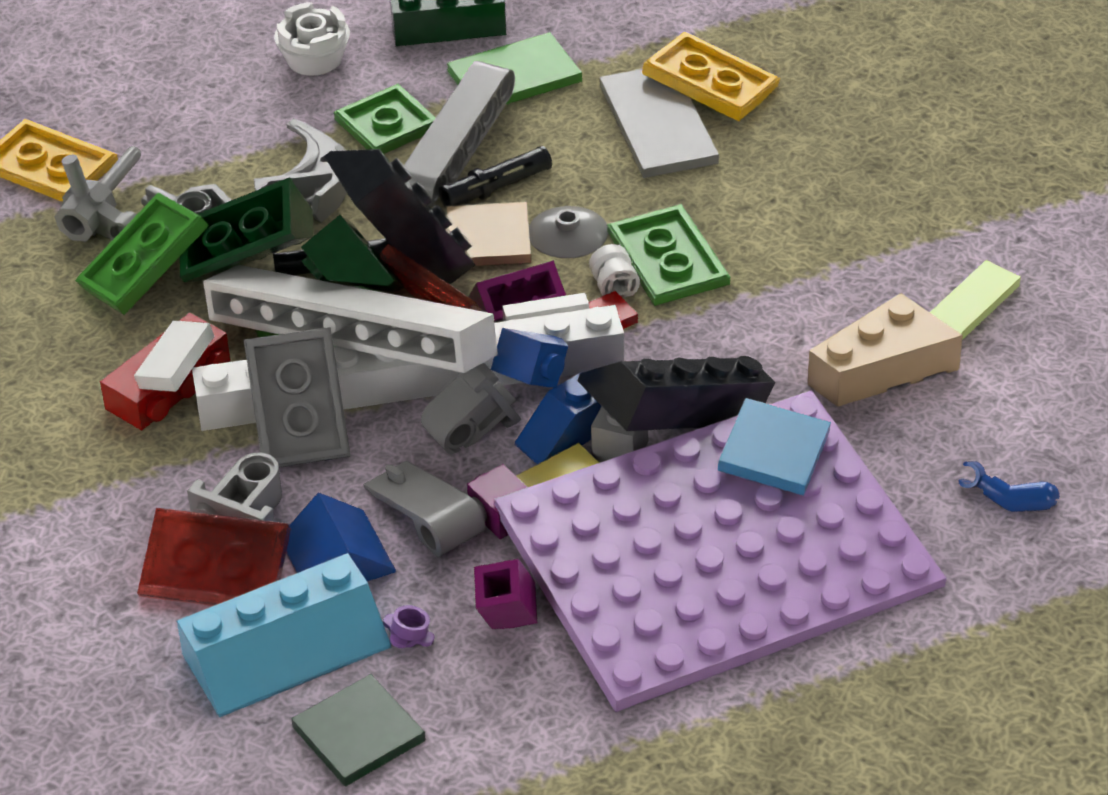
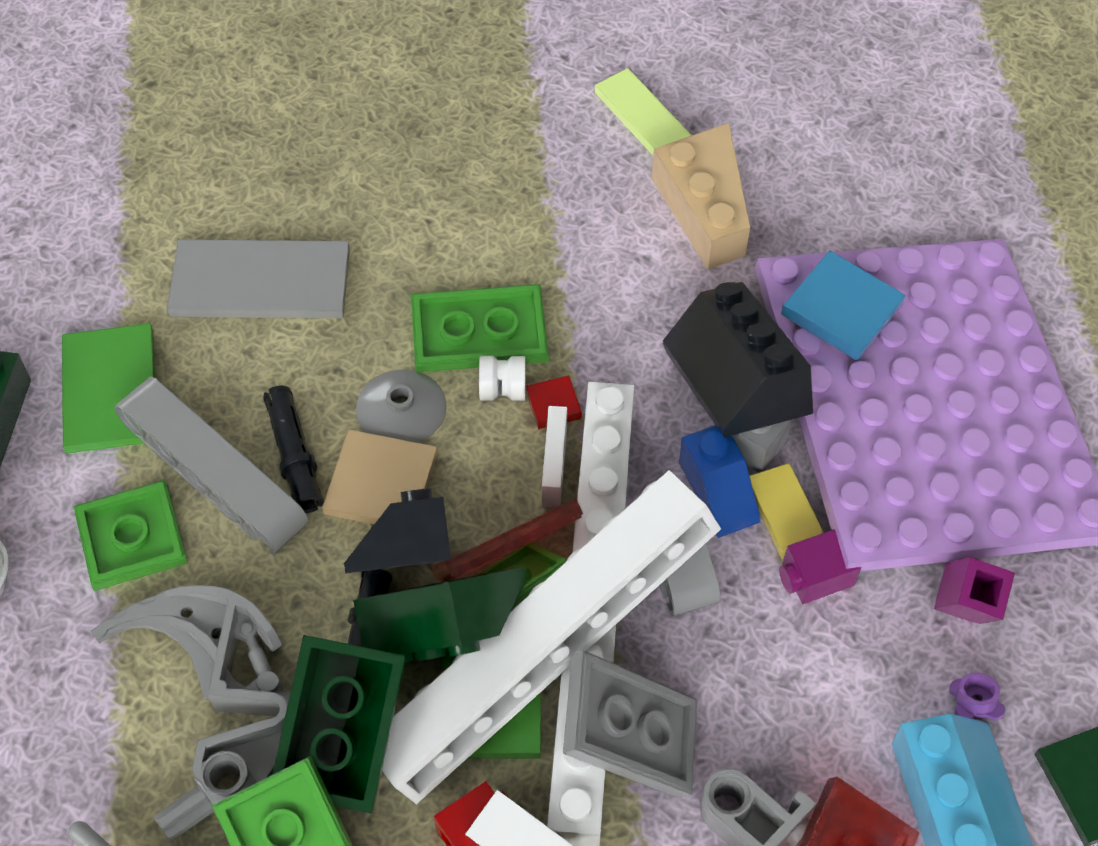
camera: 75 degrees left, 15 degrees up
(332, 529) = (844, 739): blue slope -> none
(439, 511) = (798, 637): light grey door -> none
(517, 287) = (502, 475): magenta brick -> none
(530, 357) = (687, 454): blue slope -> none
(711, 76) = (218, 212): yellow tile -> none
(1013, 498) = (916, 147): blue arm -> none

